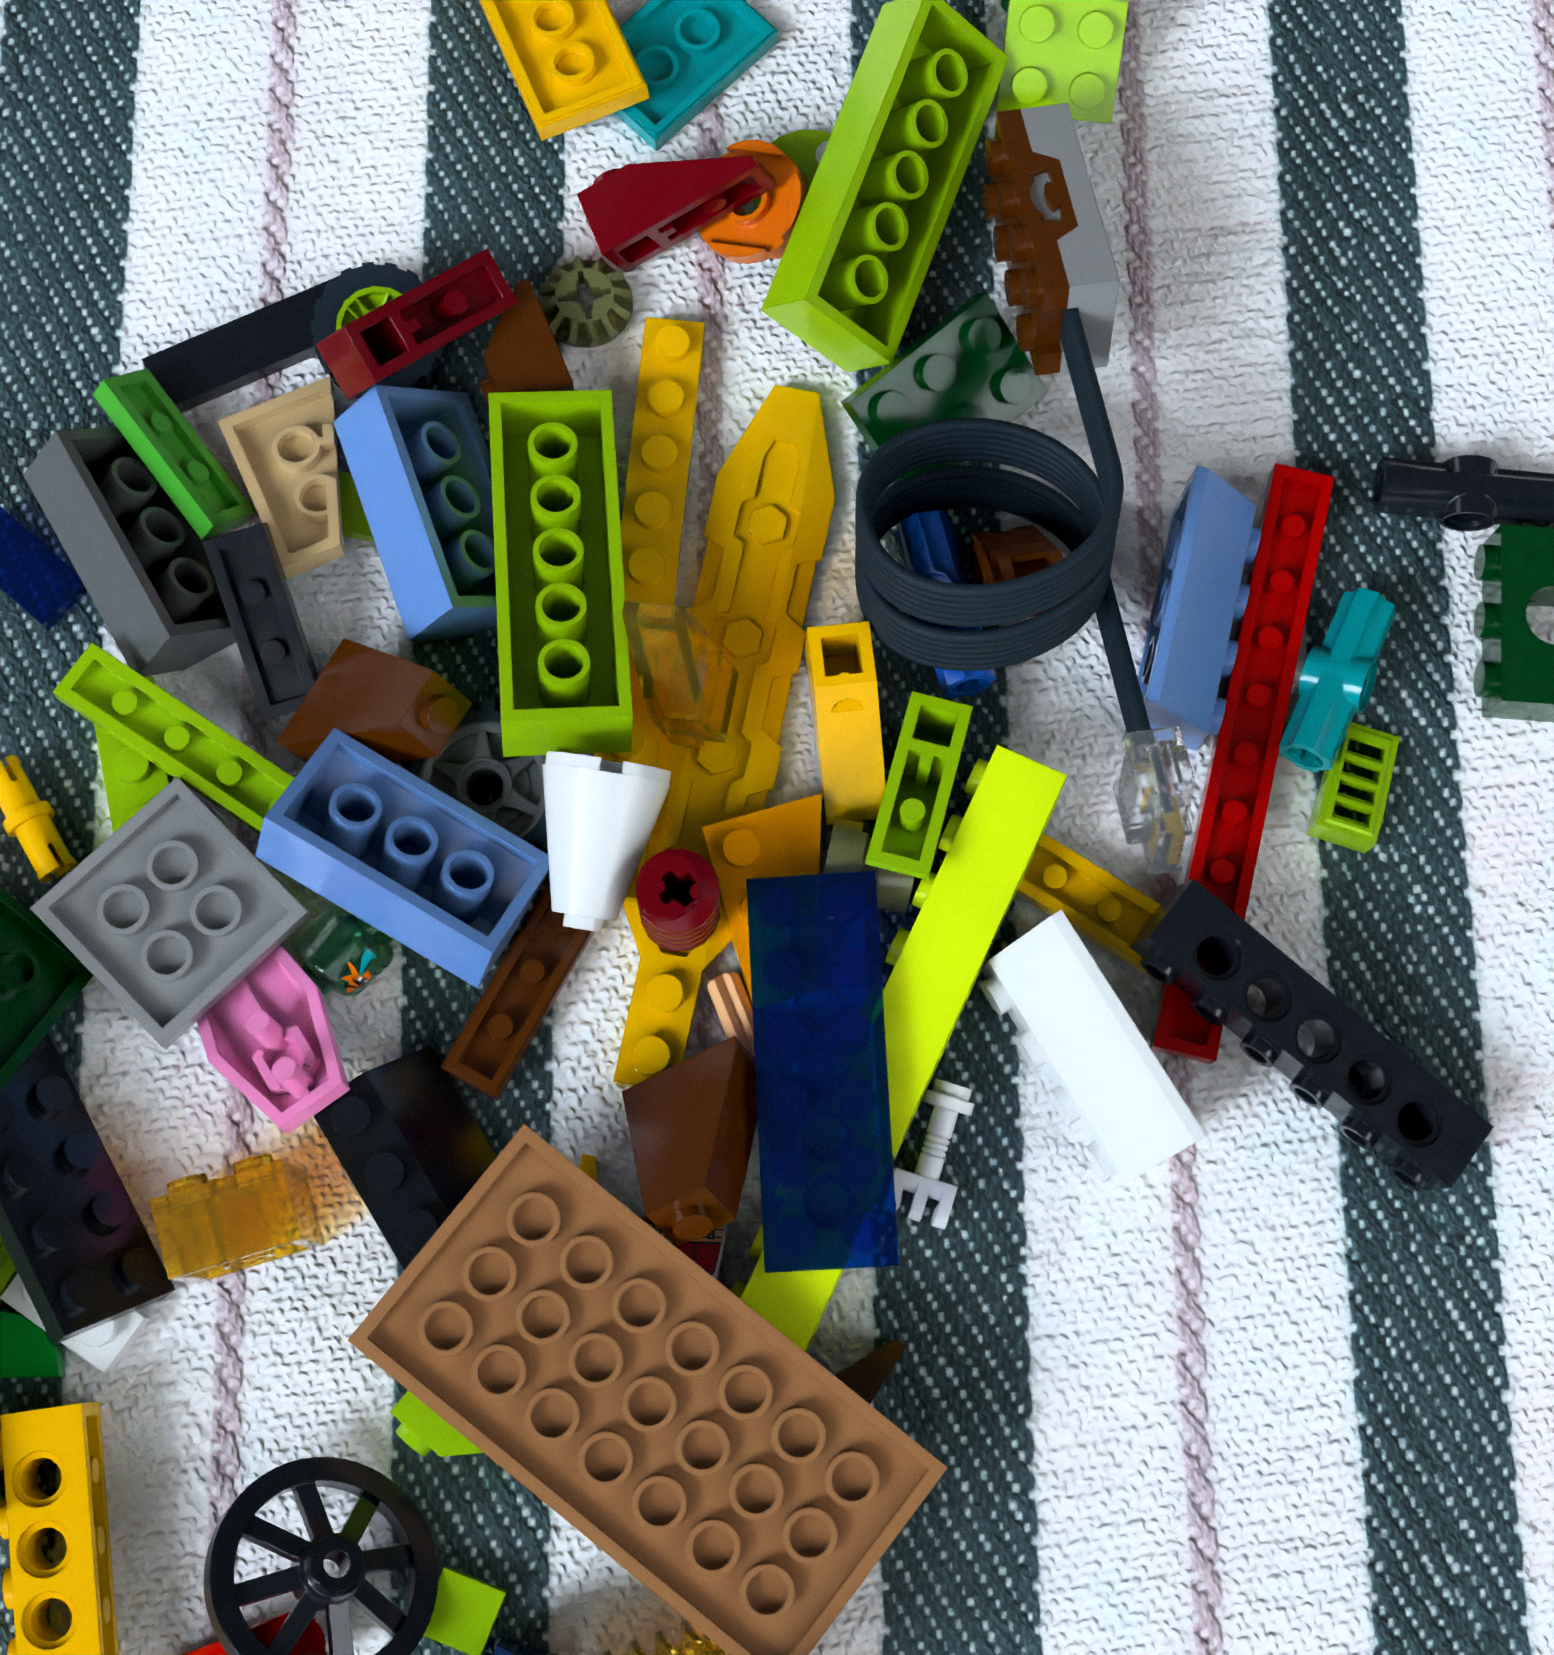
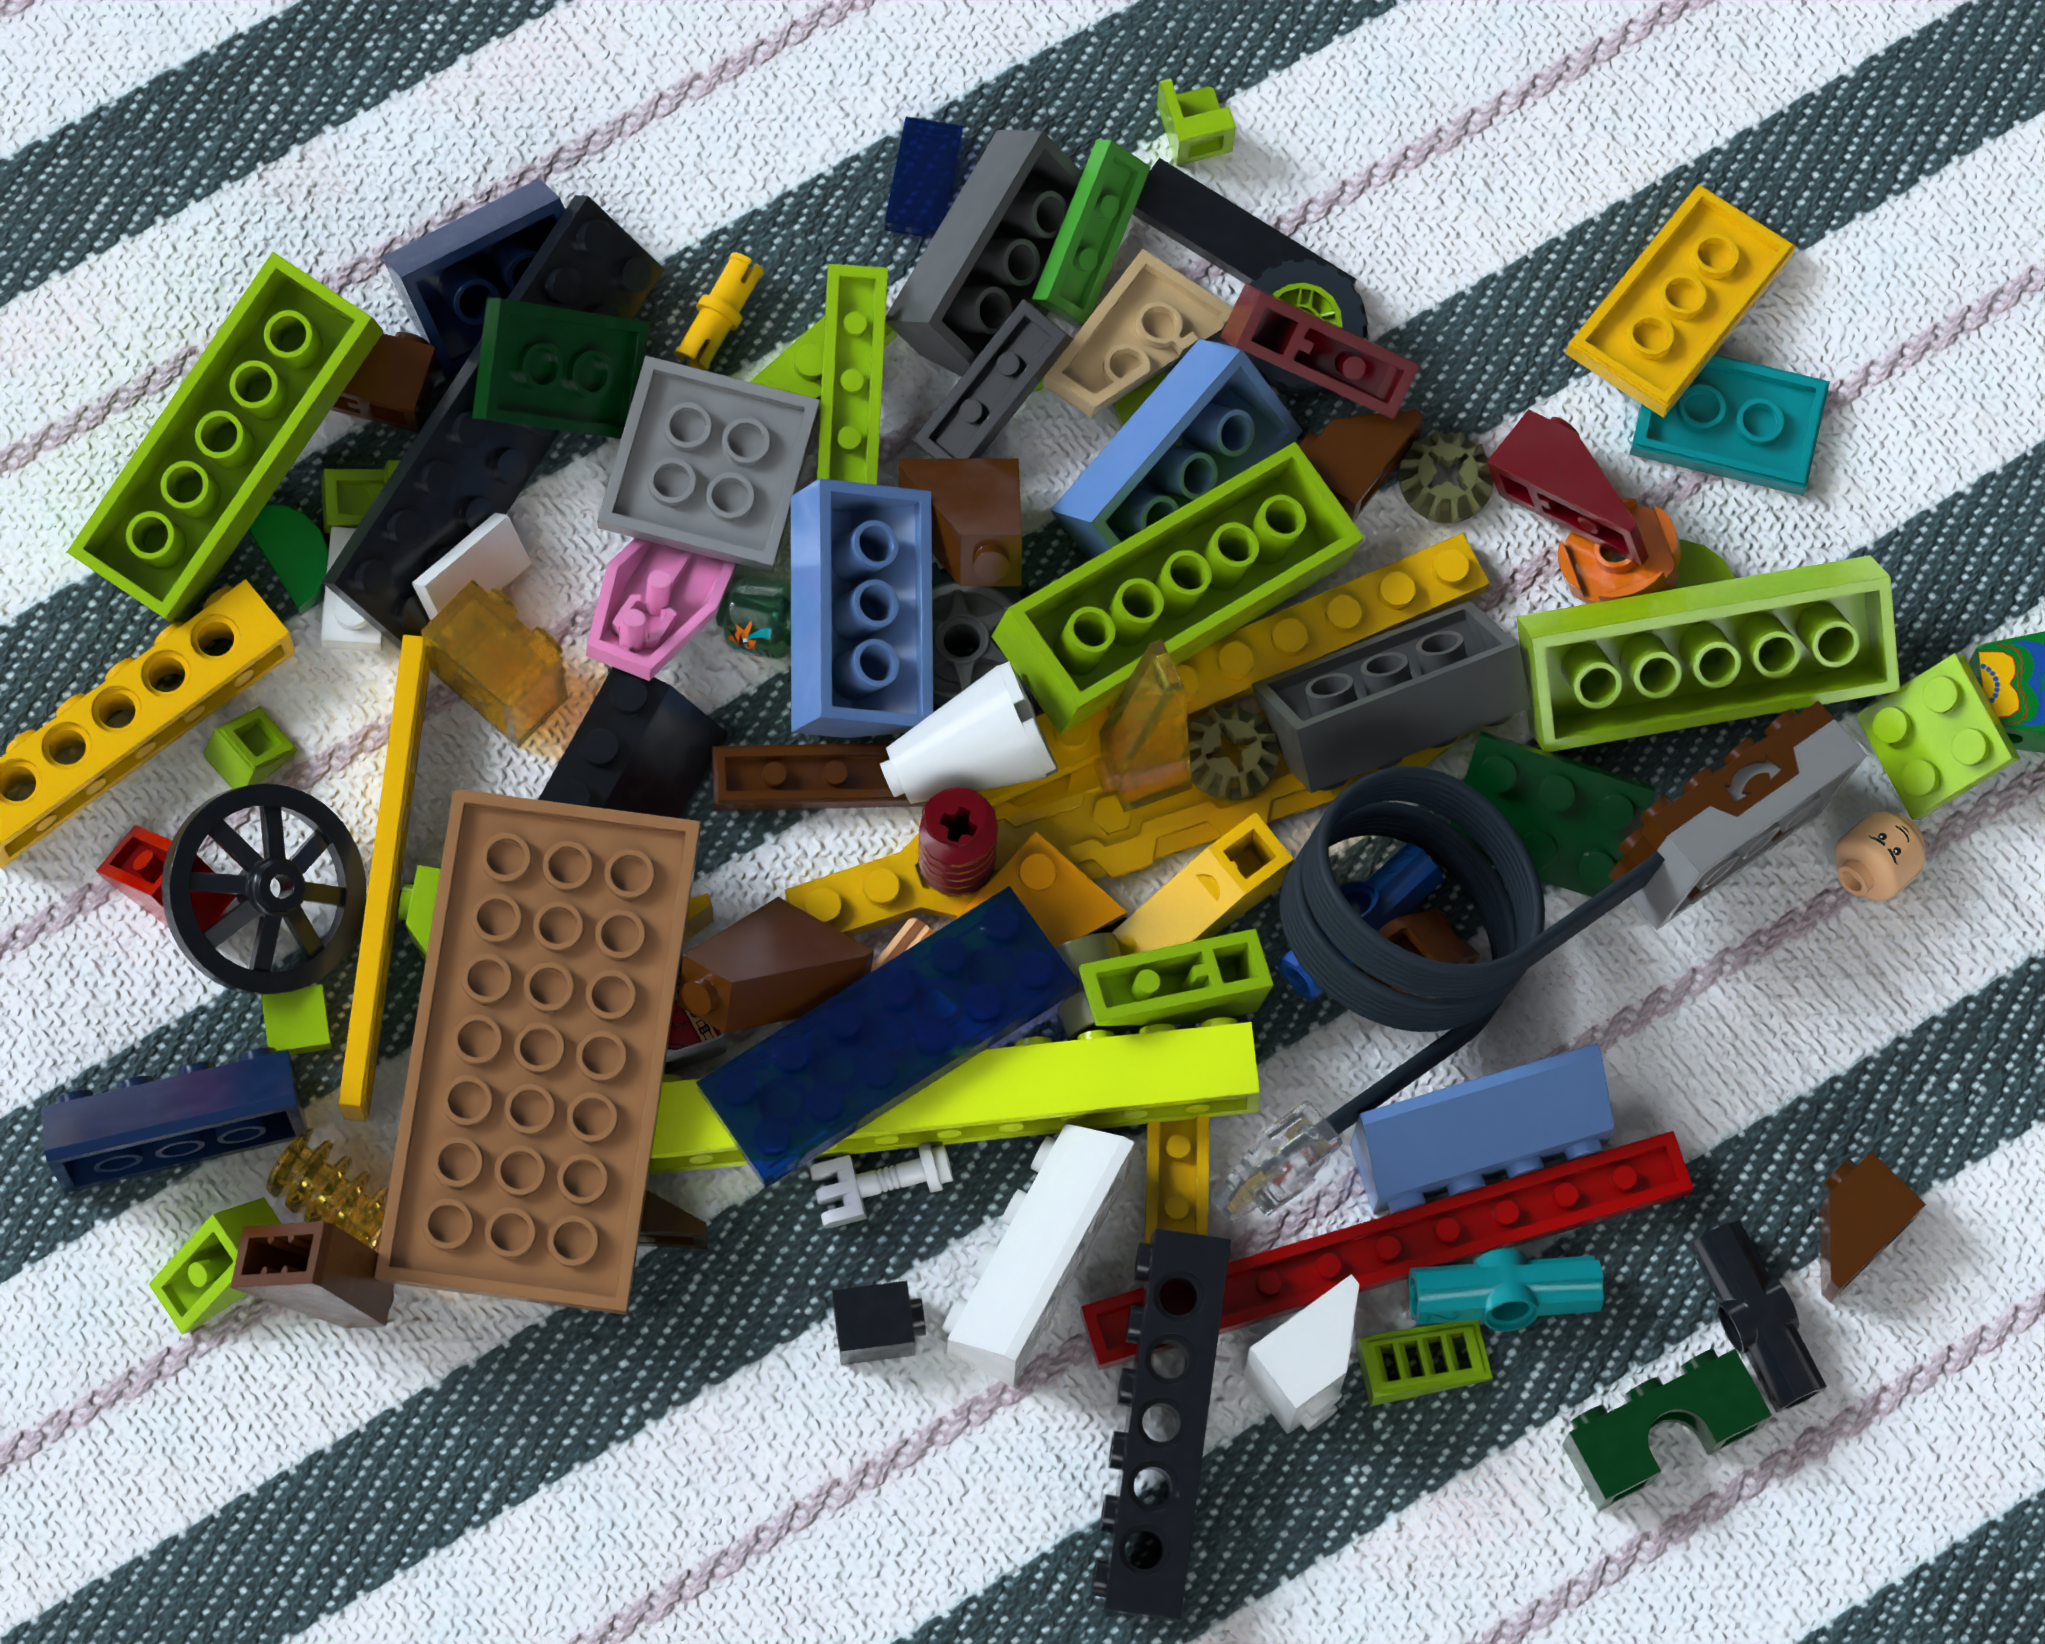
camera: 60 degrees right, 5 degrees down
(128, 1176) = (488, 555): none -> white tile
(129, 313) = (1195, 123): none -> lime panel
(167, 1503) = (248, 749): none -> lime slope
(379, 1448) = (385, 881): none -> yellow tile
(747, 640) = (1217, 775): none -> olive gear
(762, 455) = (1394, 696): none -> dark grey slope
(1066, 1234) = (877, 1322): none -> black brick
(1132, 163) = (1881, 854): none -> light nougat head
(1319, 874) = (1306, 1360): none -> white slope
(1436, 367) = (1861, 1219): none -> reddish brown slope

